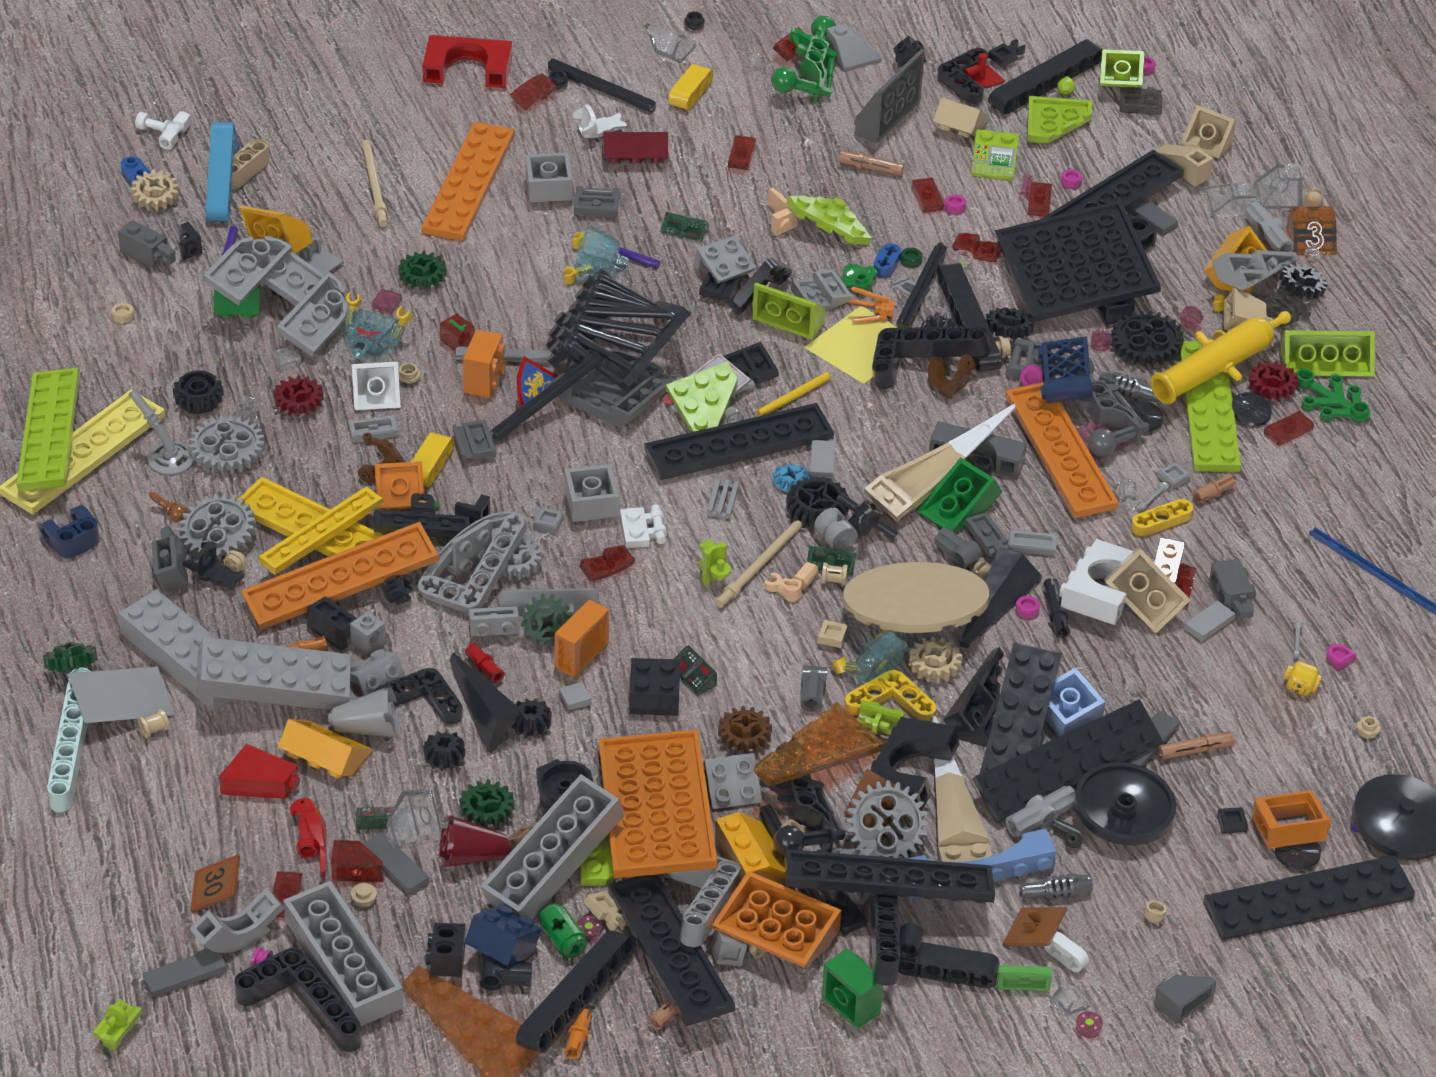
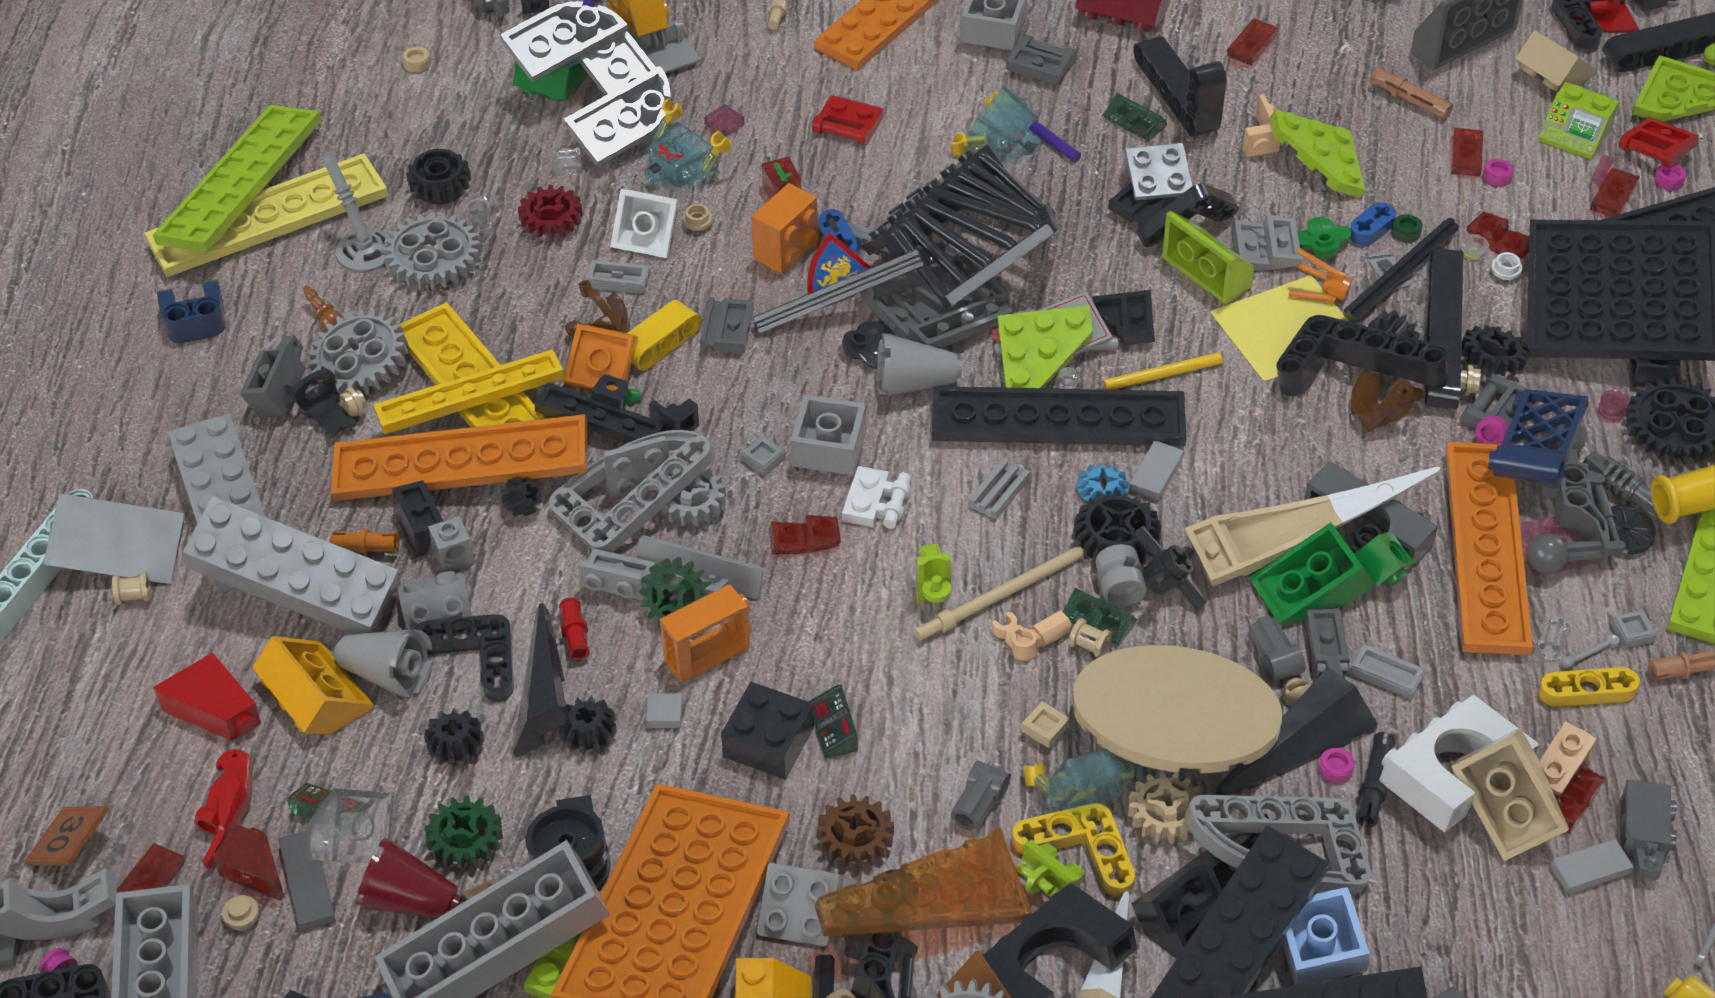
camera: 25 degrees right, 5 degrees up
(70, 657) = (85, 471): dark green gear -> none
(422, 270) = (783, 93): dark green gear -> none
(478, 277) = (848, 119): none -> red plate
(521, 351) = (845, 231): none -> blue beam
(583, 428) = (864, 342): none -> black plate
(624, 433) = (914, 366): none -> light grey cone
(726, 207) = (1191, 94): none -> black beam
(972, 658) = (1208, 831): none -> light grey beam
(991, 266) = (1506, 266): none -> white plate
(1003, 472) = (1385, 559): none -> green brick
(1055, 156) = (1659, 141): none -> red plate

